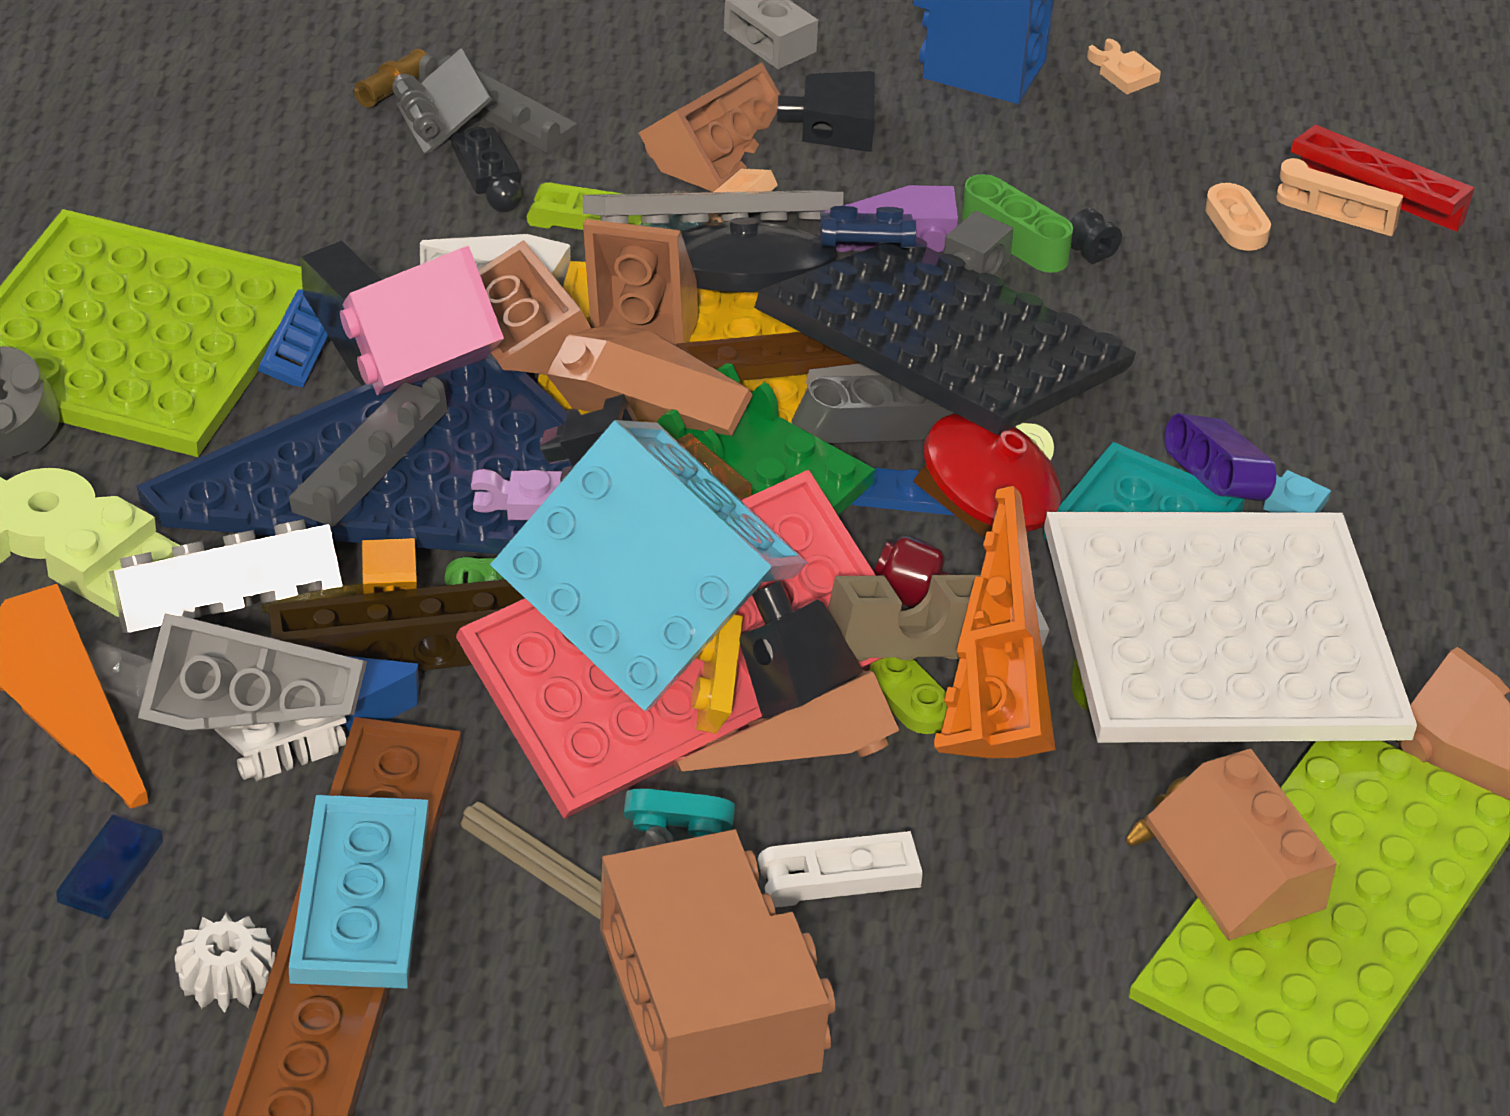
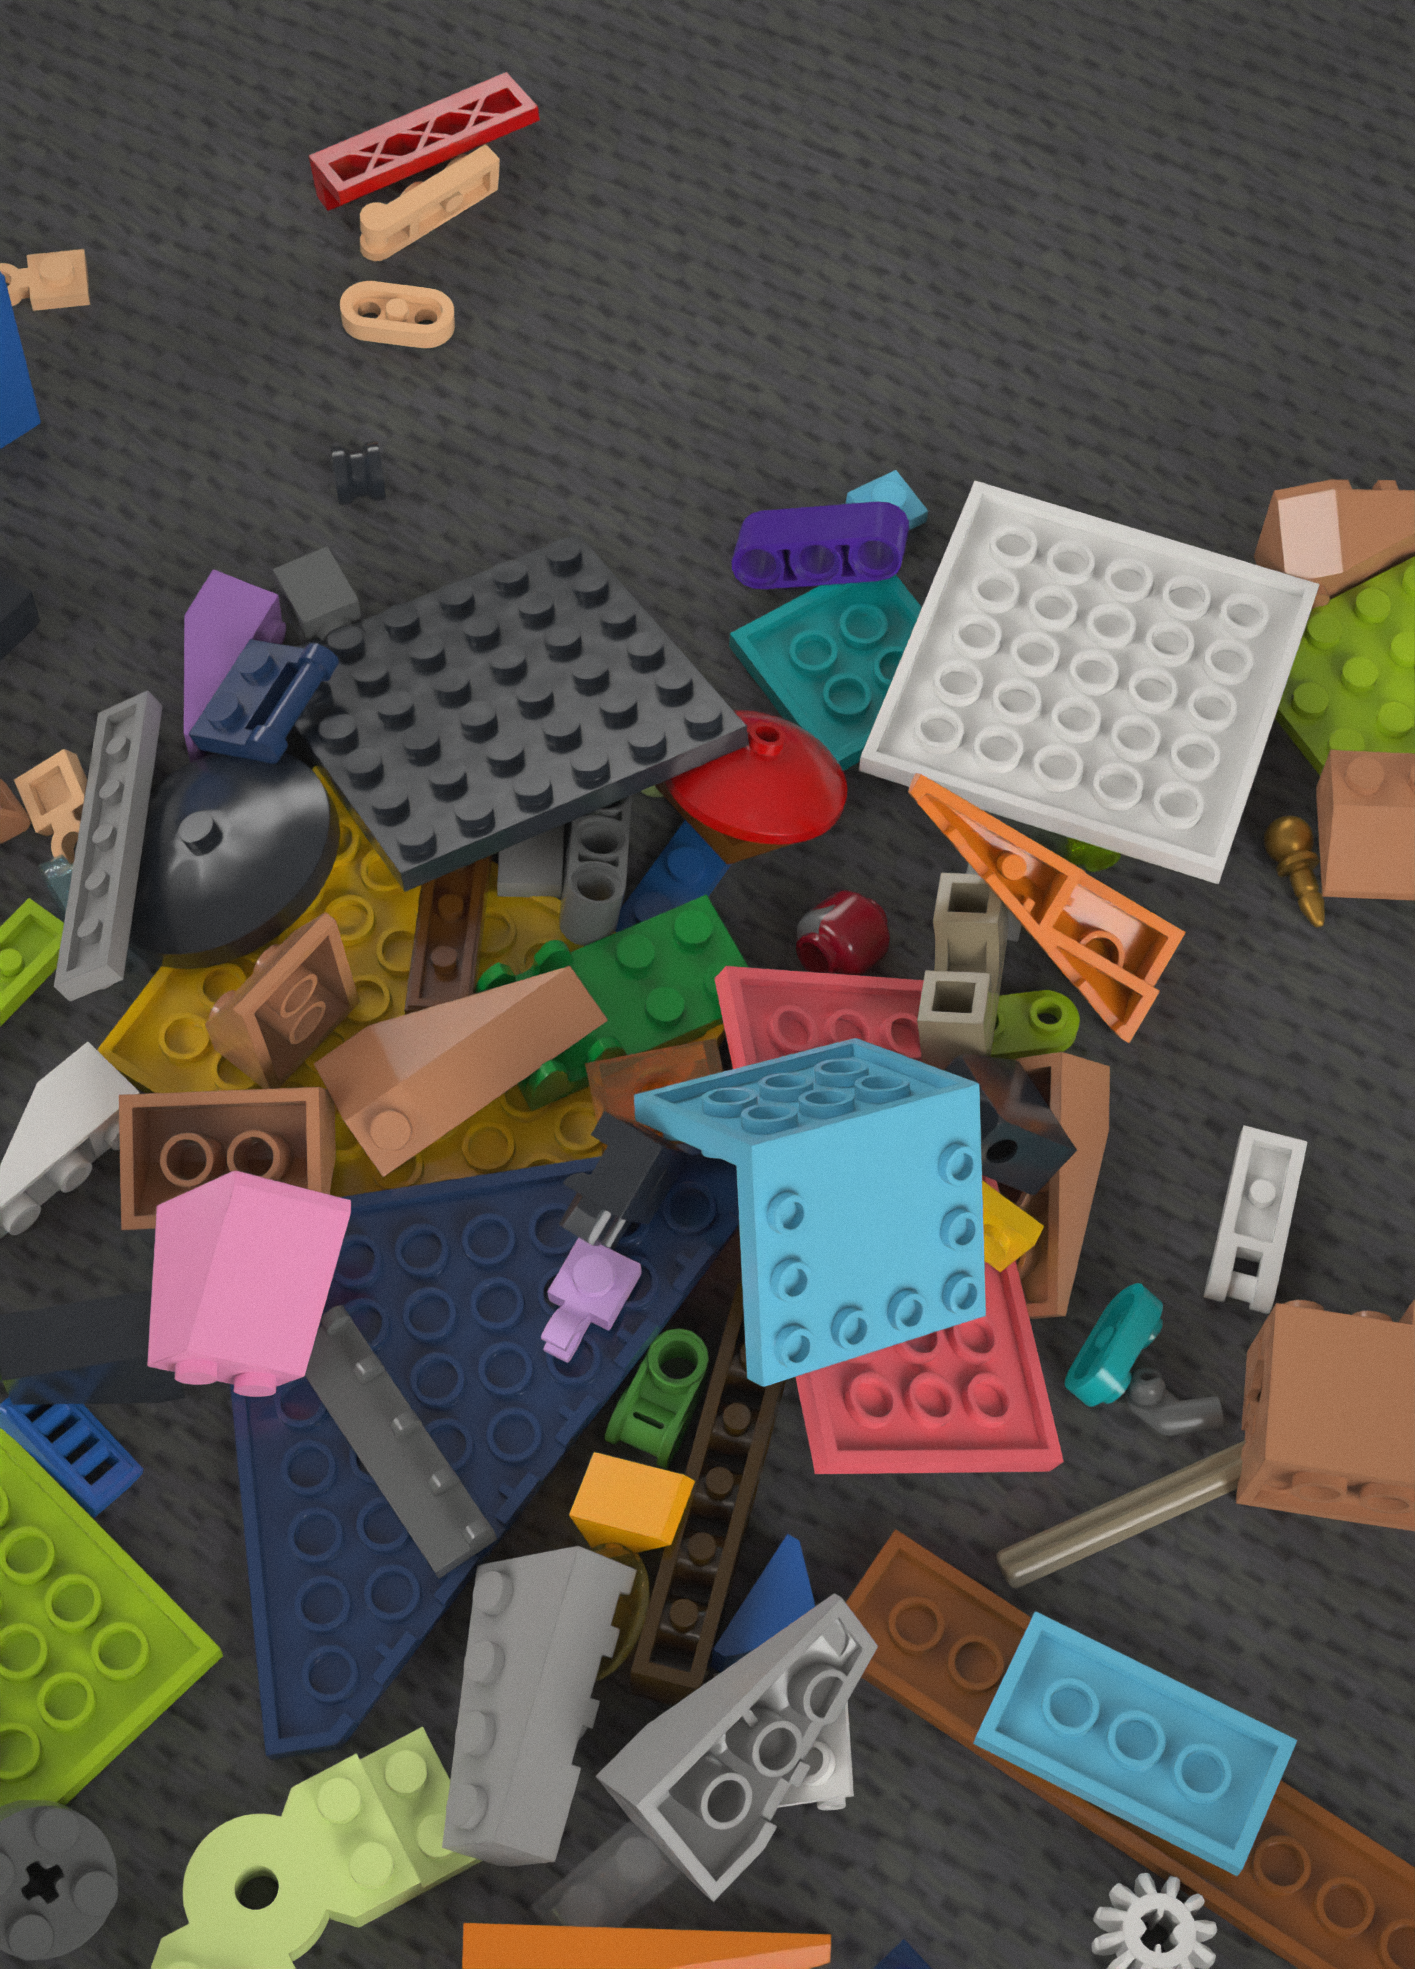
camera: 65 degrees left, 20 degrees up
(1039, 233) = (313, 518): bright green beam -> none

